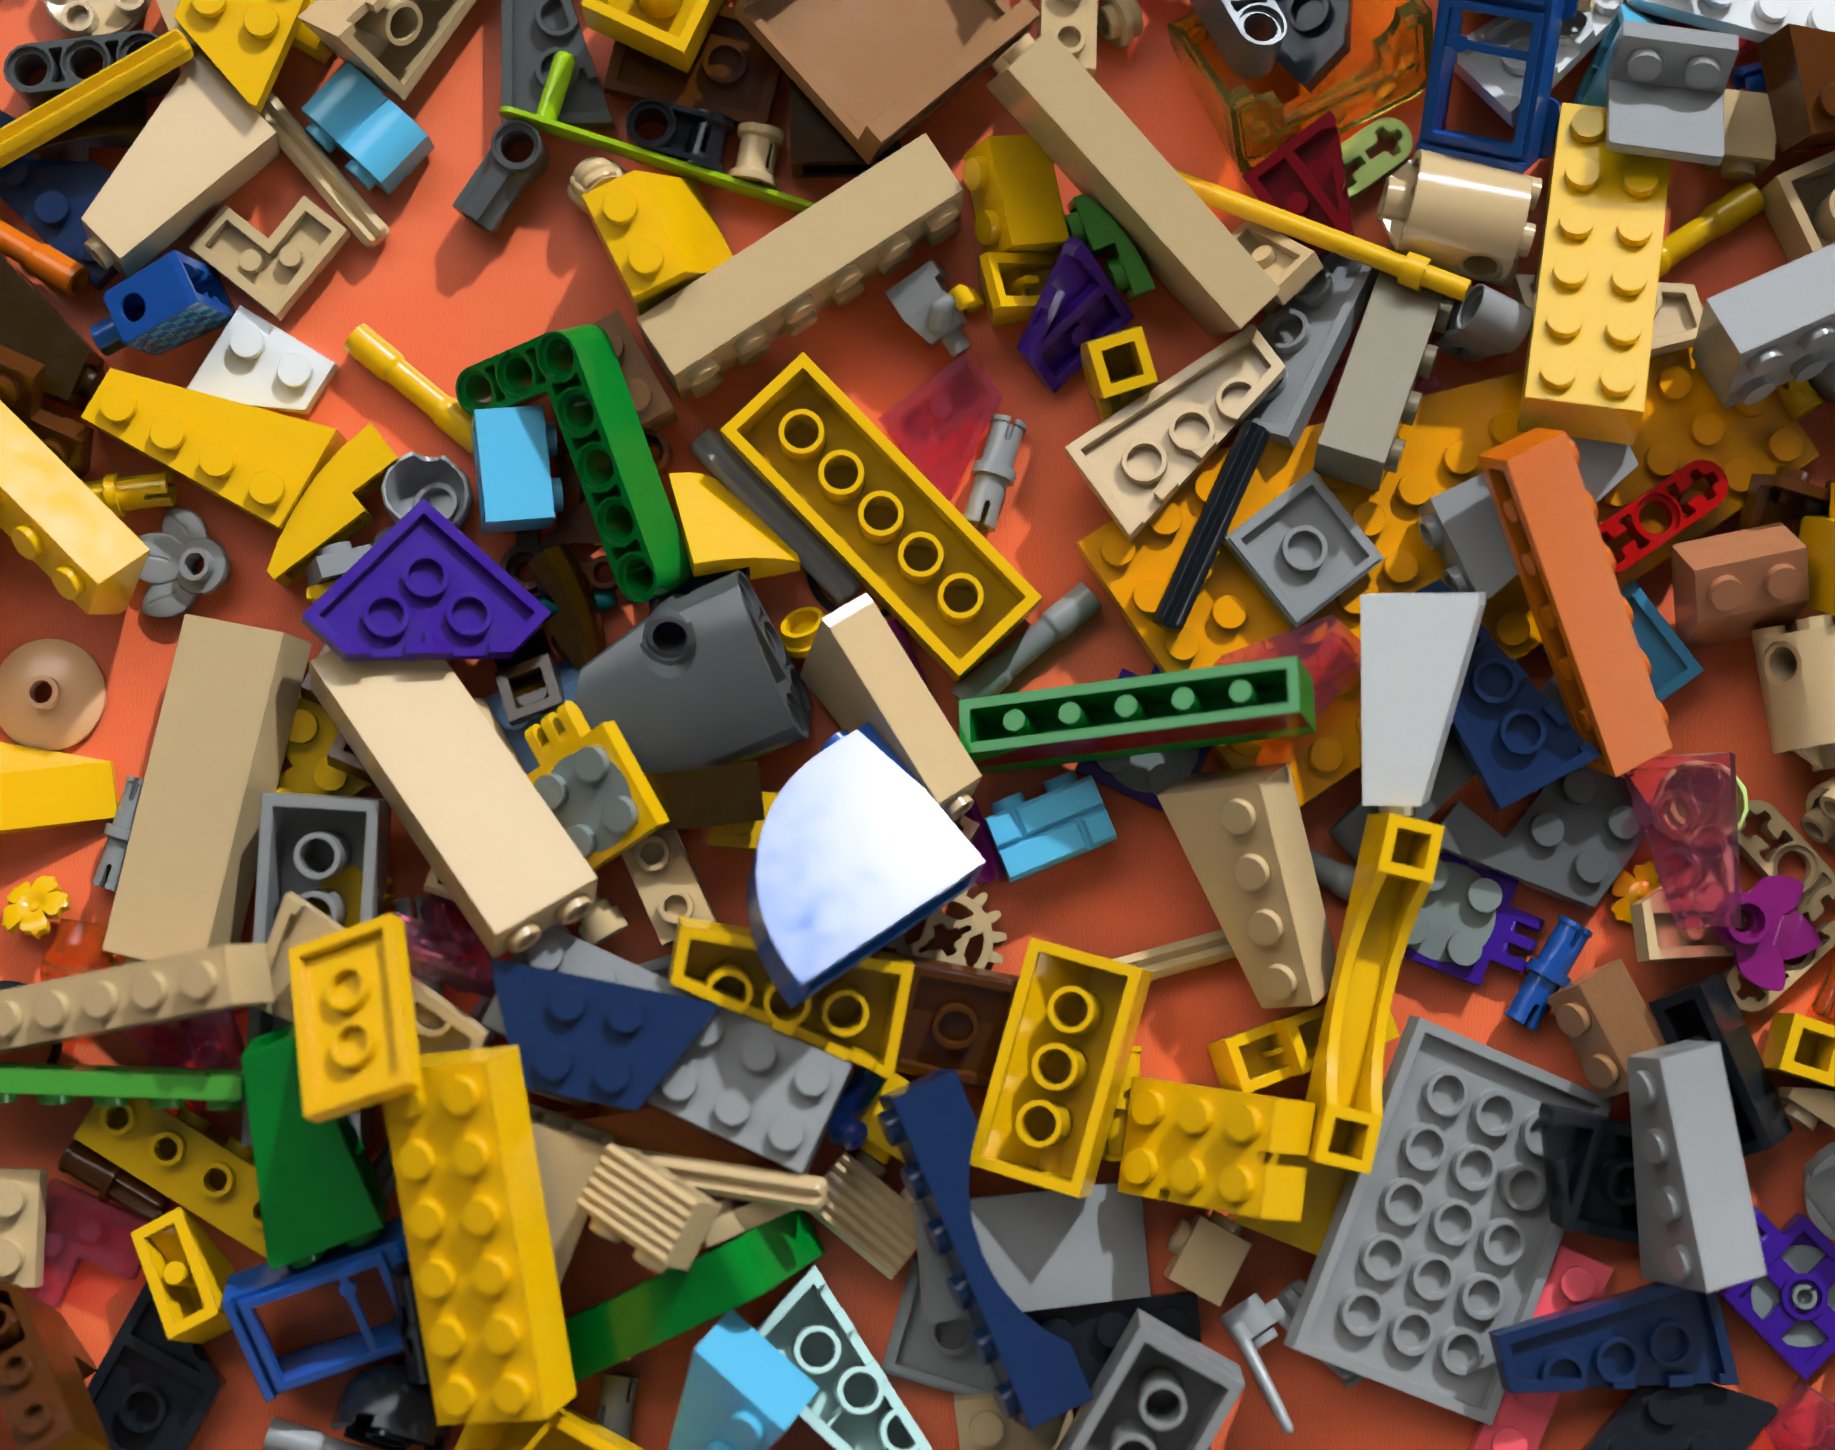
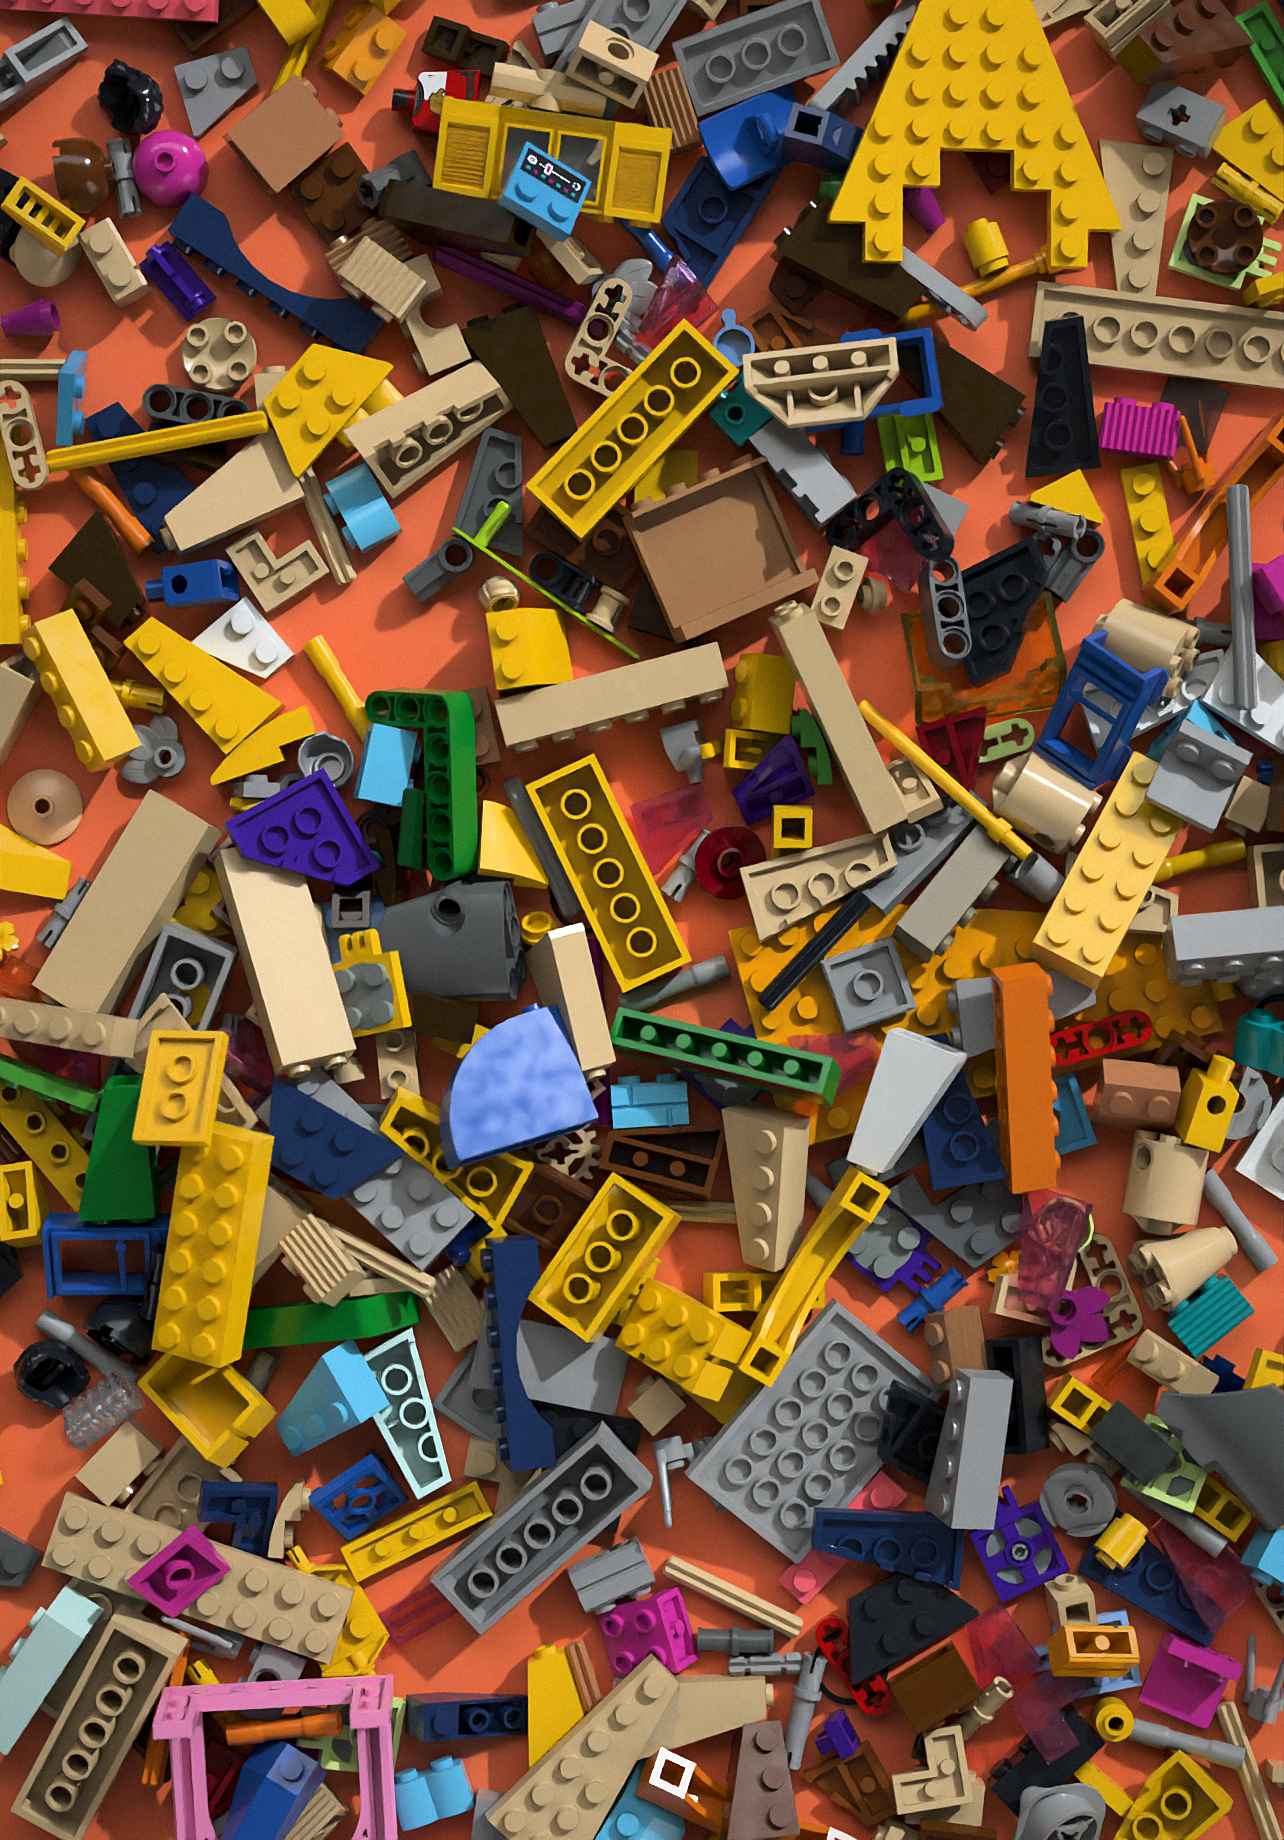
camera: 20 degrees right, 5 degrees up
(580, 543) = (413, 831): none -> dark green tile
(1055, 423) = (744, 850): none -> dark red dish
(1100, 896) = (666, 1158): none -> reddish brown wedge

